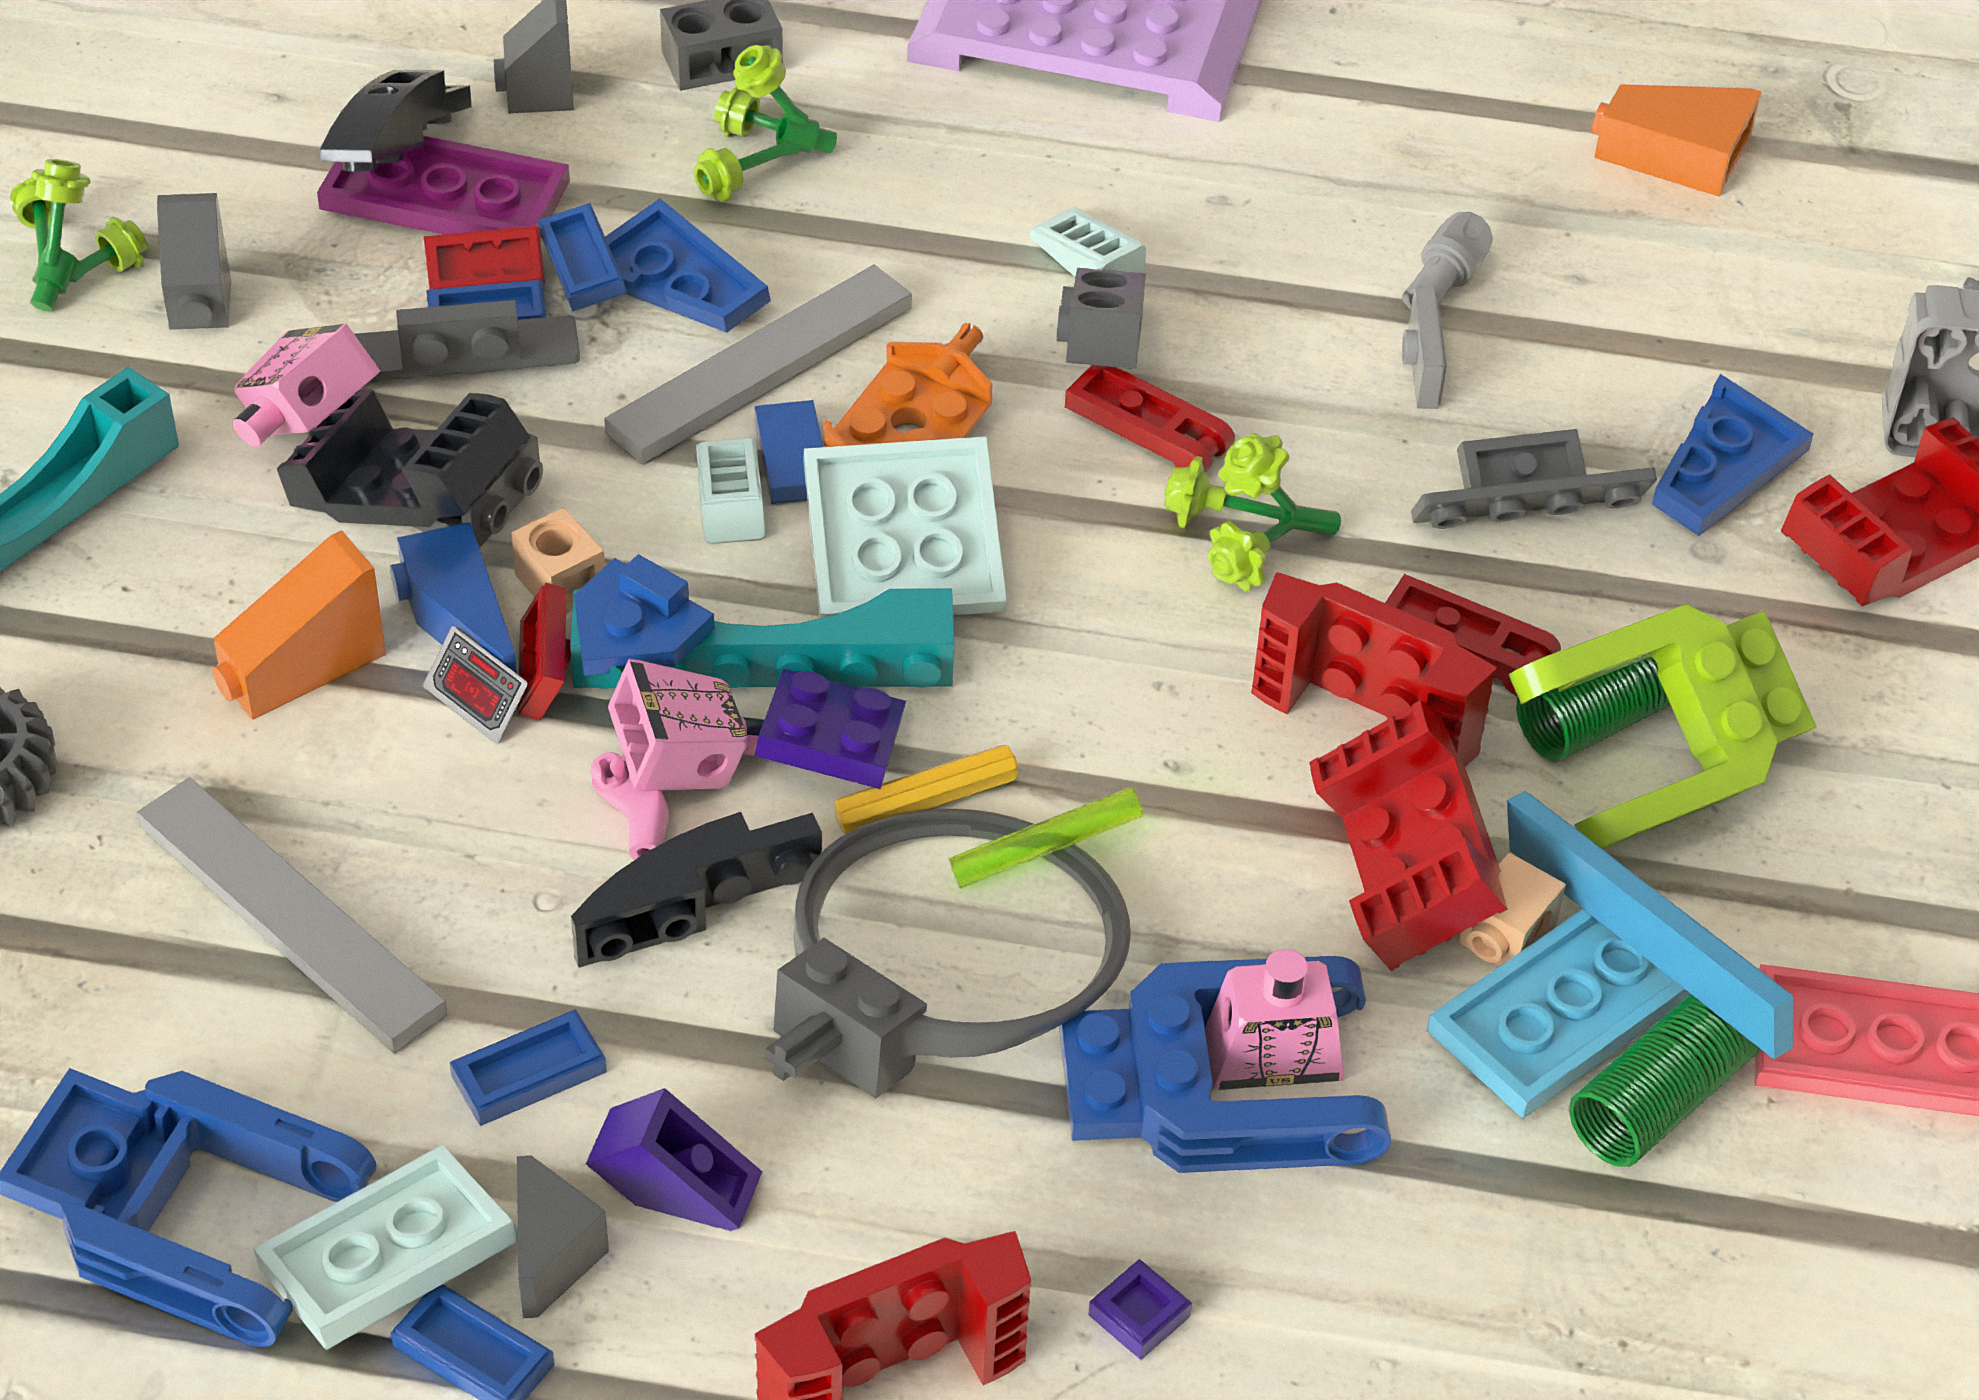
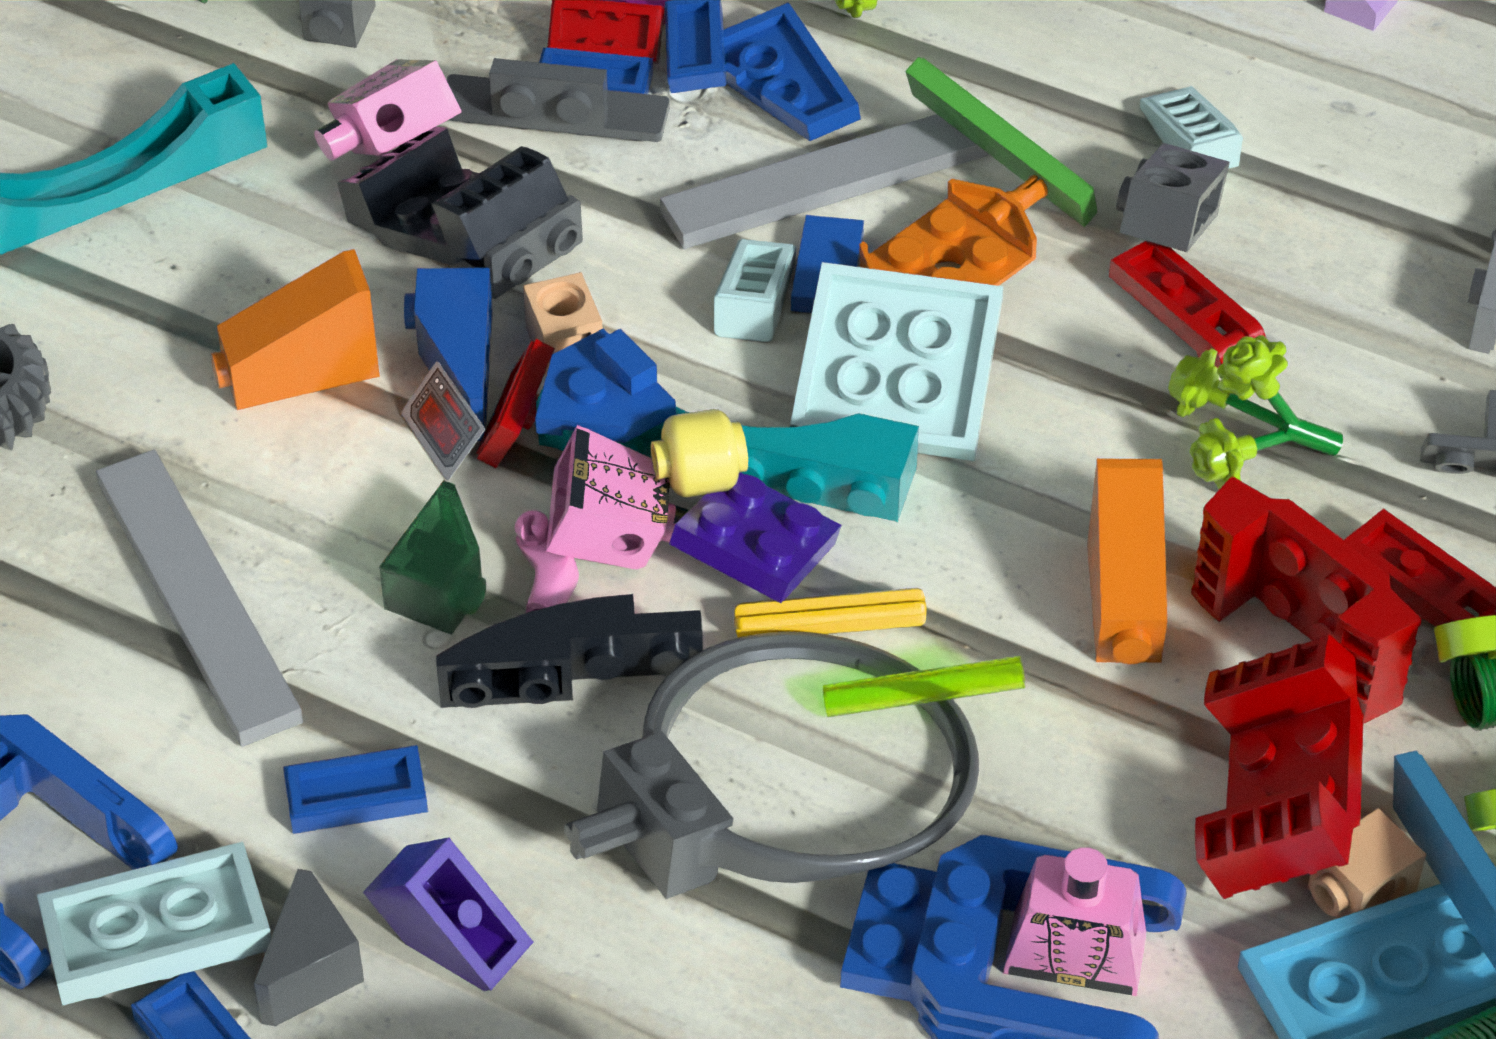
camera: 20 degrees right, 0 degrees up
(528, 828) = (435, 566): none -> clear green slope
(757, 659) = (700, 453): none -> light yellow head
(920, 294) = (1001, 139): none -> bright green tile
(1194, 675) = (1128, 561): none -> orange slope

